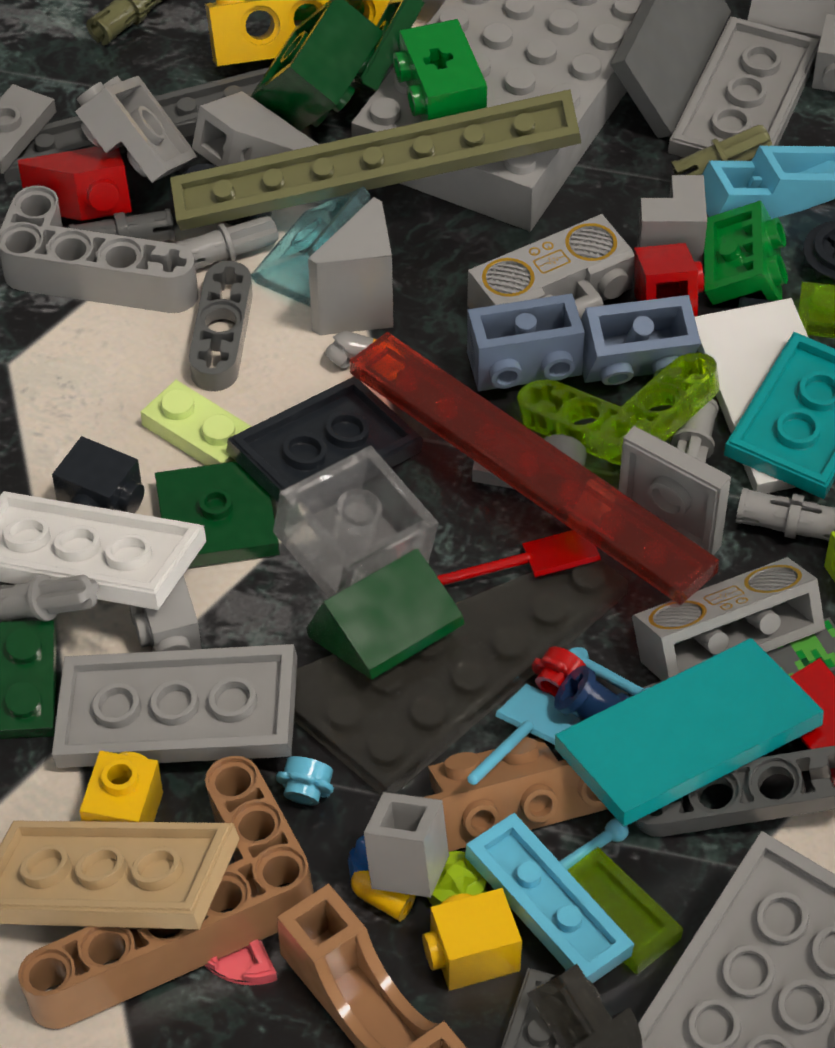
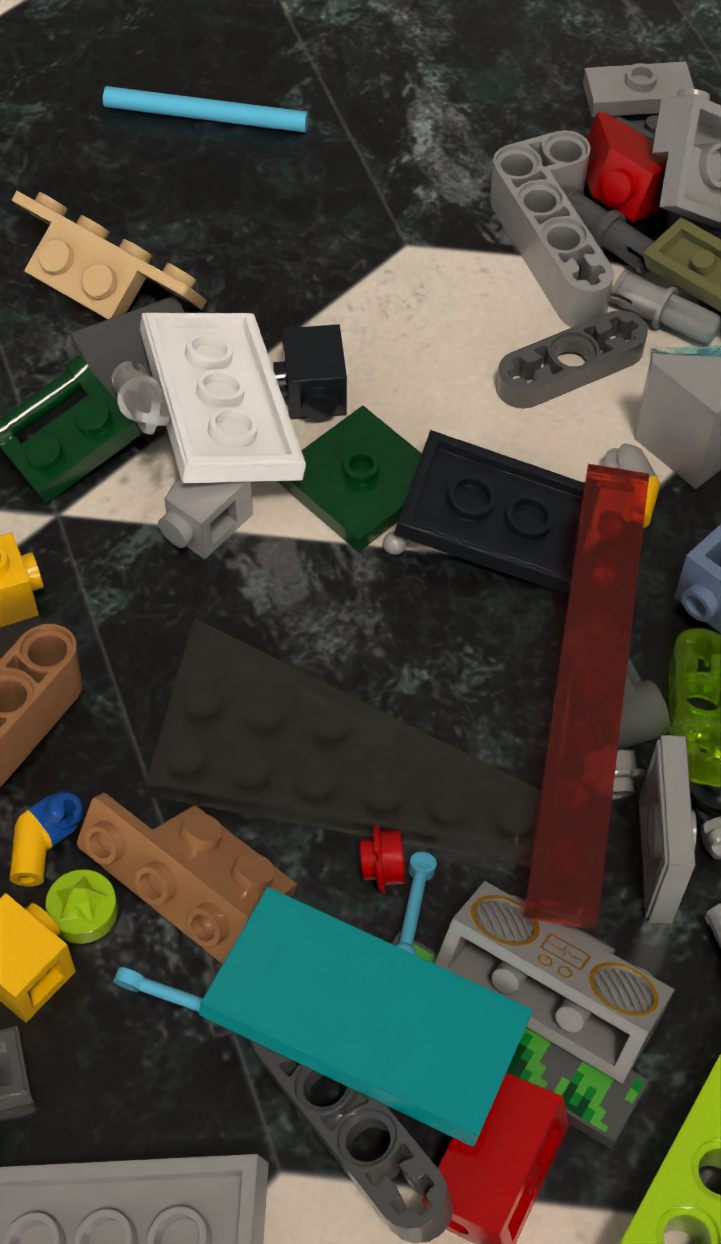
camera: 55 degrees right, 5 degrees up
(177, 705) = (116, 568): light grey plate -> none
(192, 423) = (446, 399): yellowish green plate -> none
(305, 780) = (109, 713): medium azure plate -> none
(352, 521) = (407, 582): clear brick -> none
(386, 616) = (322, 668): dark green slope -> none
(406, 844) = (56, 829): light grey brick -> none
(532, 713) = (320, 865): medium azure piece -> none
(543, 555) = (513, 768): red piece -> none
(549, 899) = (93, 1000): medium azure plate -> none
(584, 695) = (359, 899): dark blue bush -> none
(629, 907) = (142, 1074): clear neon green tile -> none

